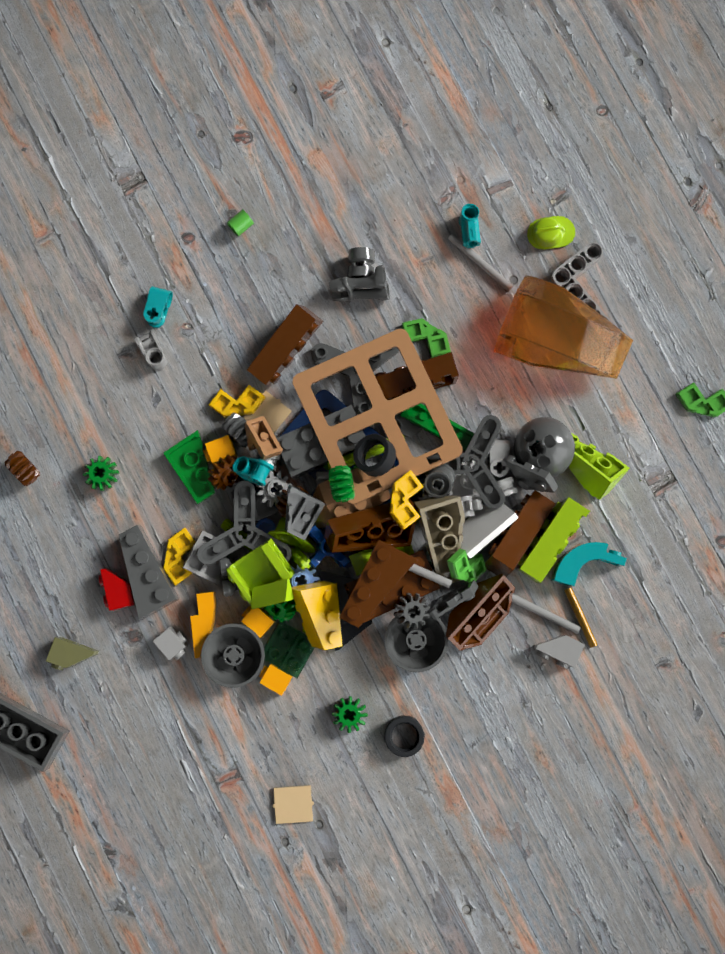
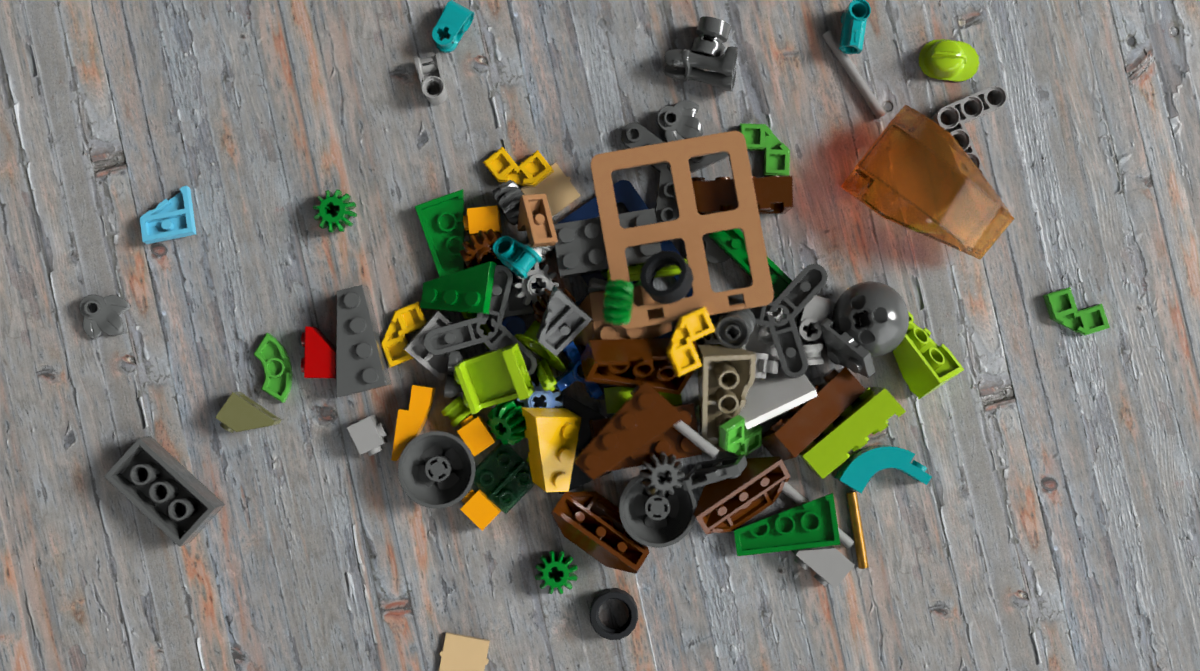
camera: 10 degrees right, 5 degrees up
(22, 468) = (242, 181): reddish brown gear -> none
(85, 610) = (276, 367): none -> bright green tile
(217, 509) = (461, 291): none -> green wing
(237, 606) = (456, 411): none -> lime wheel
(271, 594) = (500, 410): lime slope -> none
(284, 345) = (593, 113): reddish brown wedge -> none
(357, 332) = (684, 123): none -> dark grey plate
(374, 671) = (597, 529): none -> reddish brown wedge
(533, 627) = (794, 529): none -> green wing

